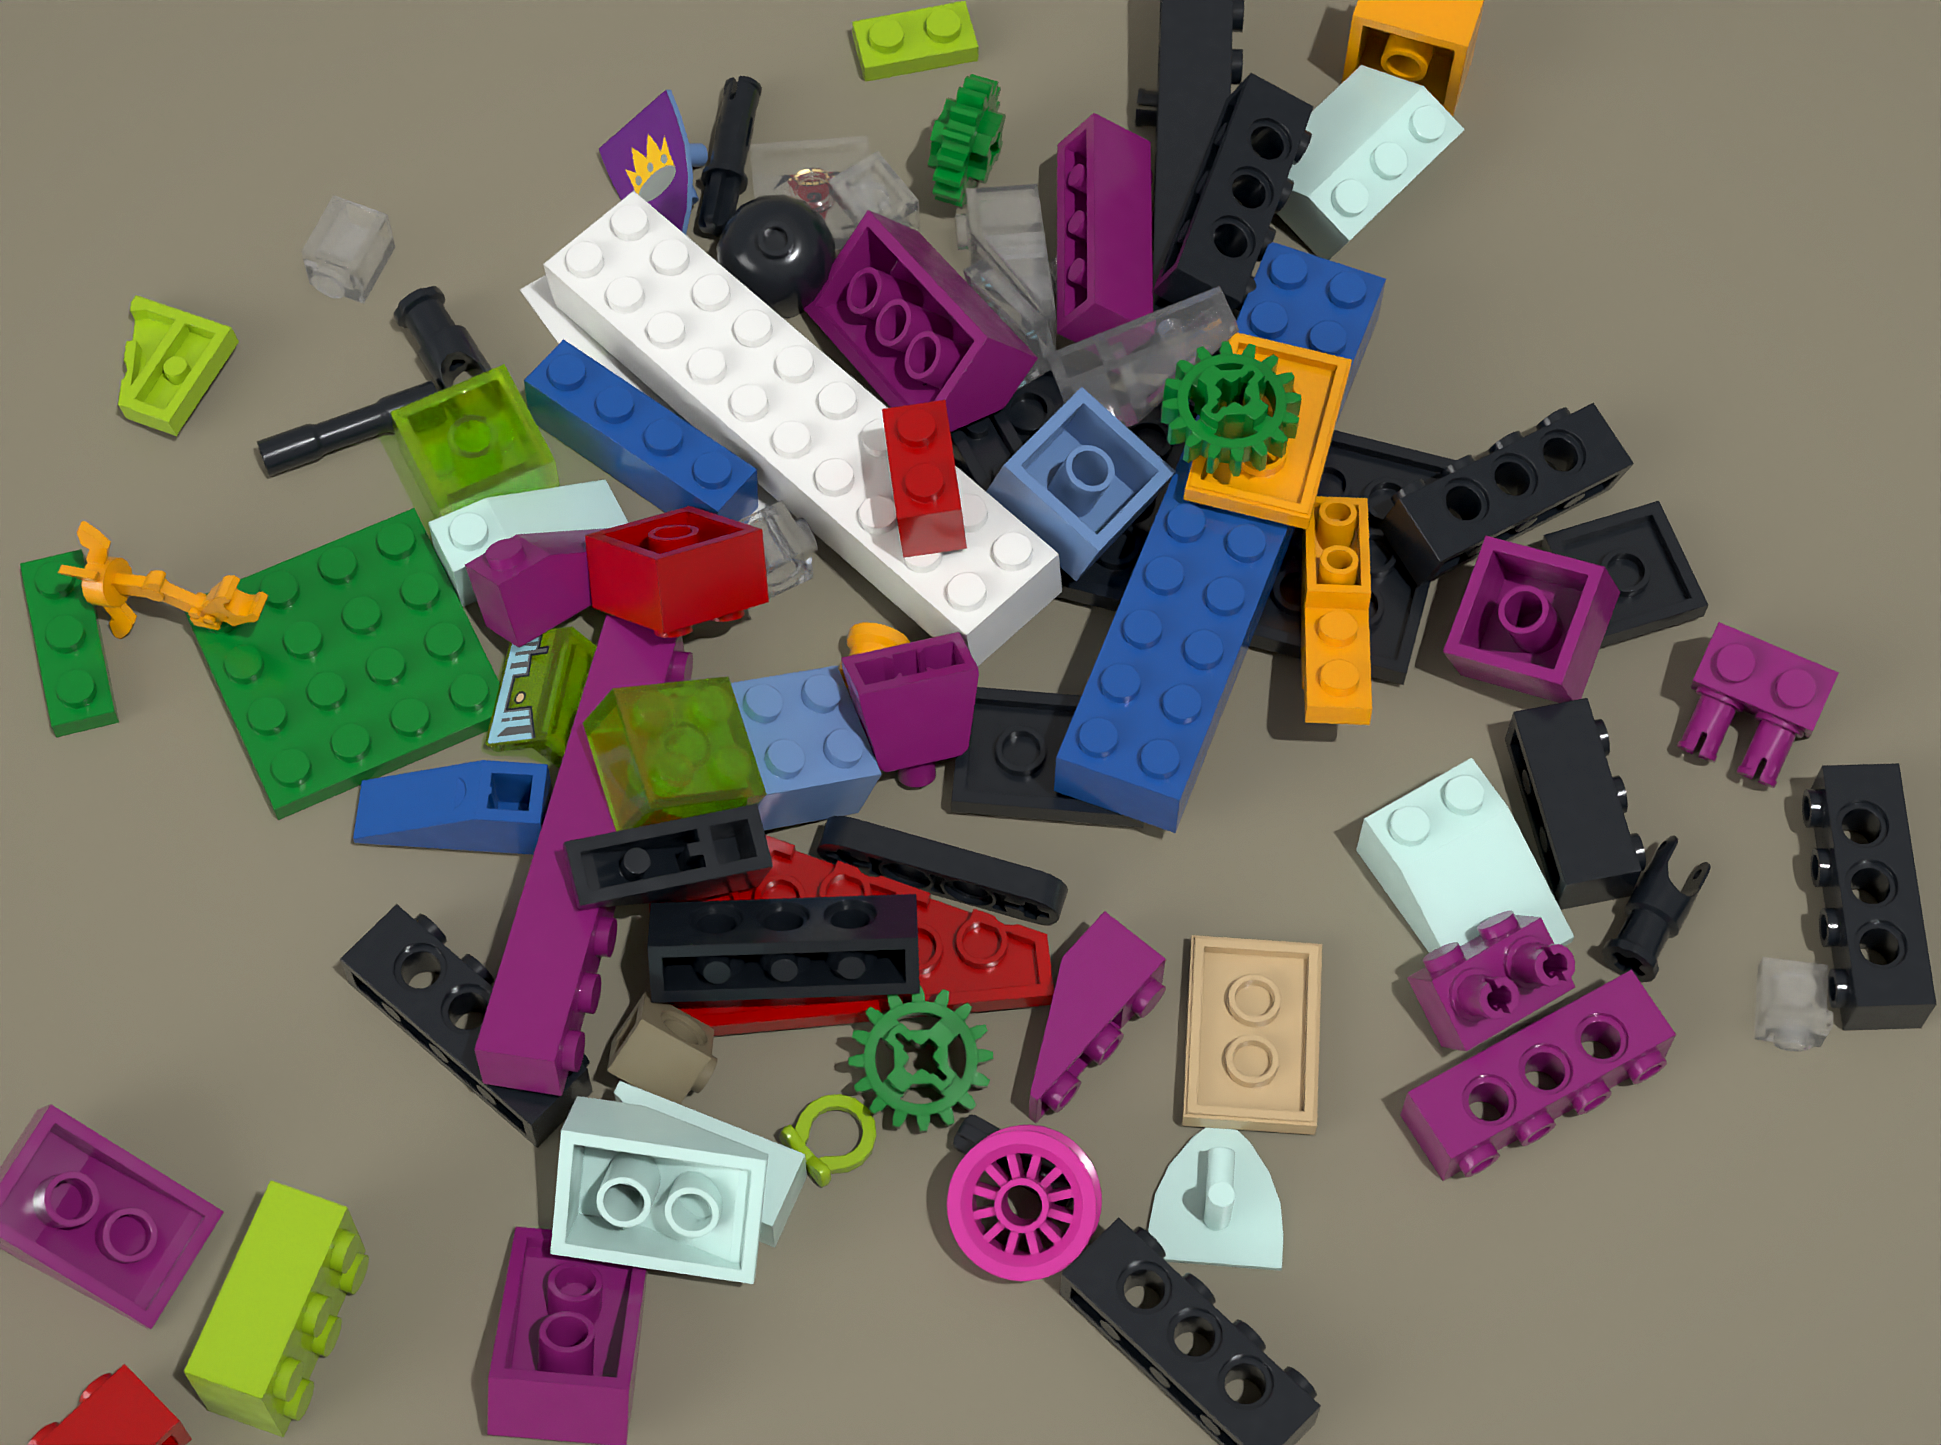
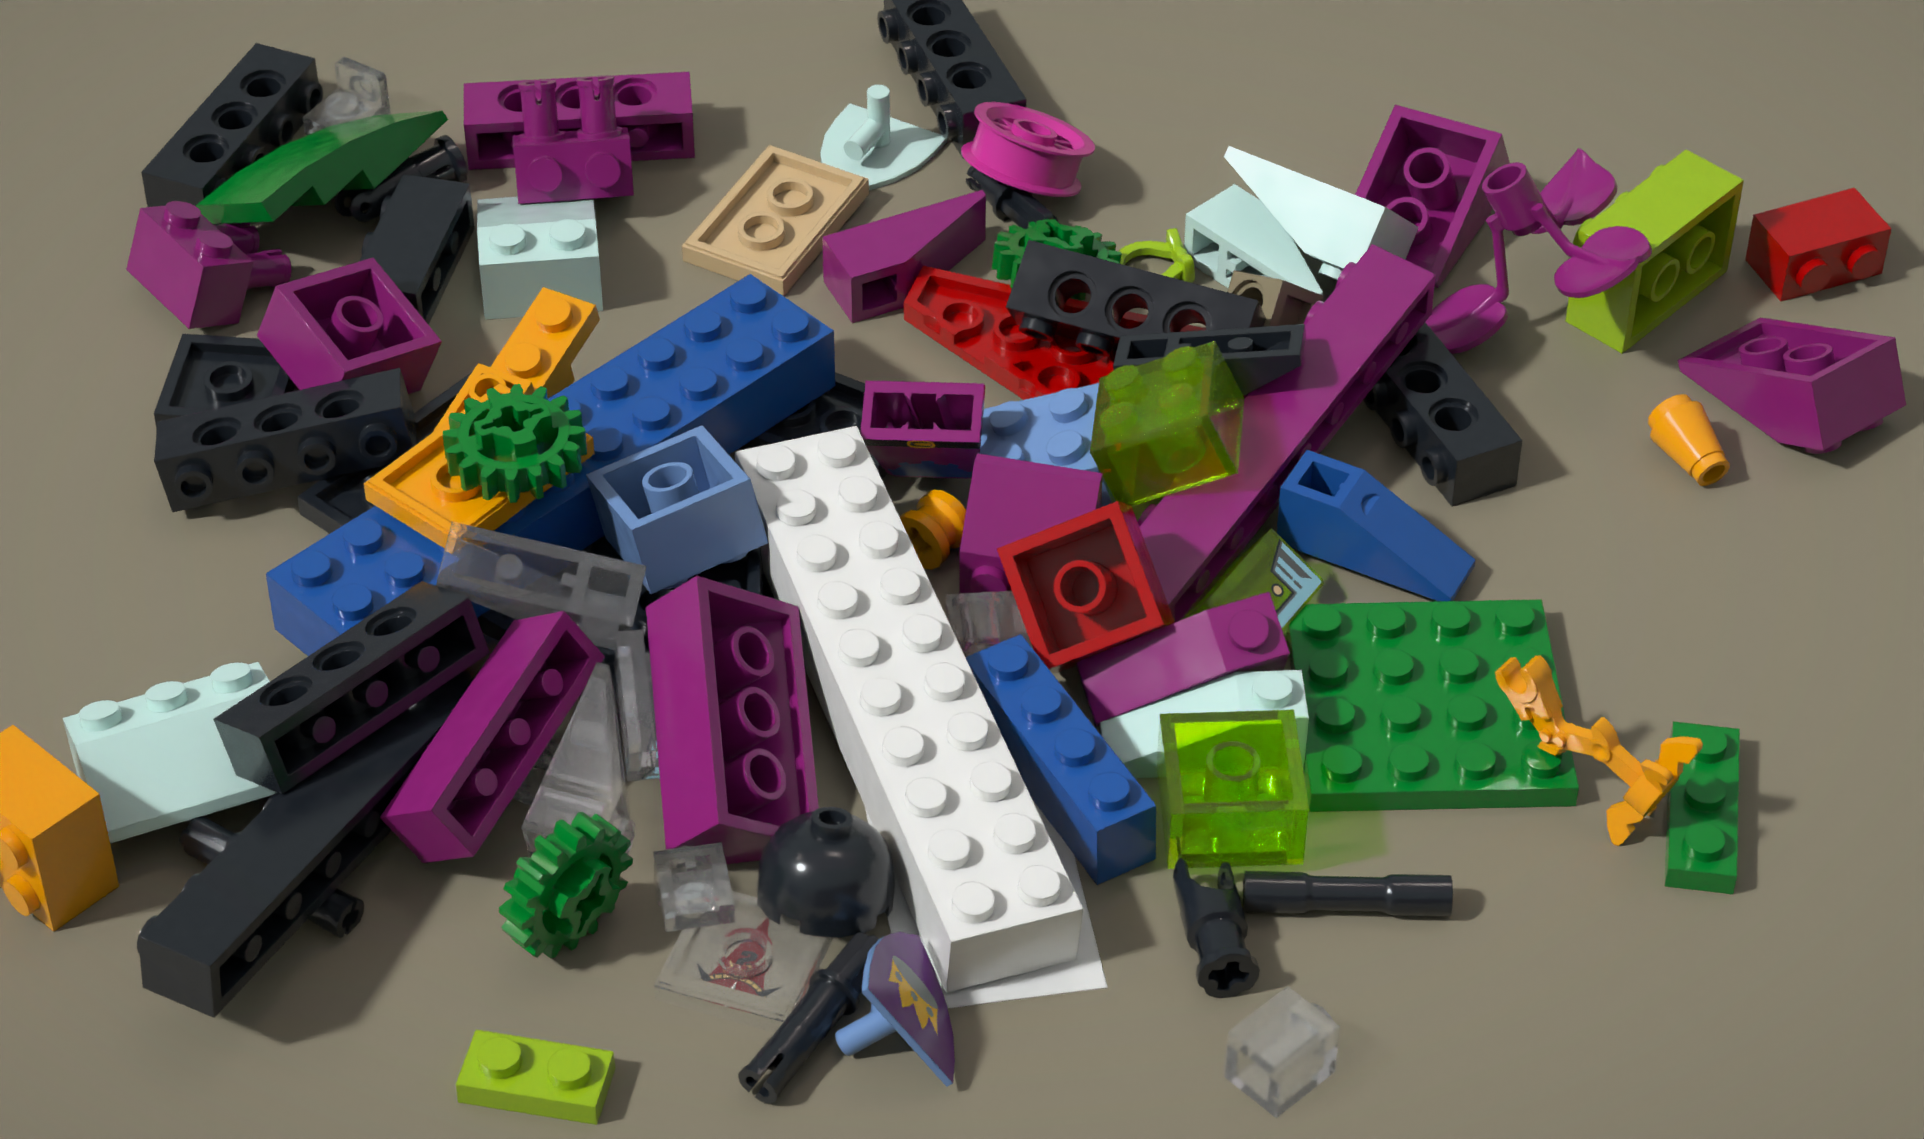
camera: 155 degrees left, 20 degrees down
(170, 364) = (1520, 1013): lime wing -> none
(183, 1085) = (1688, 438): none -> light orange cone
(462, 1166) = (1570, 198): none -> magenta plant
(769, 643) = (1013, 502): none -> magenta slope
(924, 478) = (828, 499): red brick -> none
(944, 870) = (911, 346): black beam -> none
(1732, 855) = (319, 166): none -> green slope

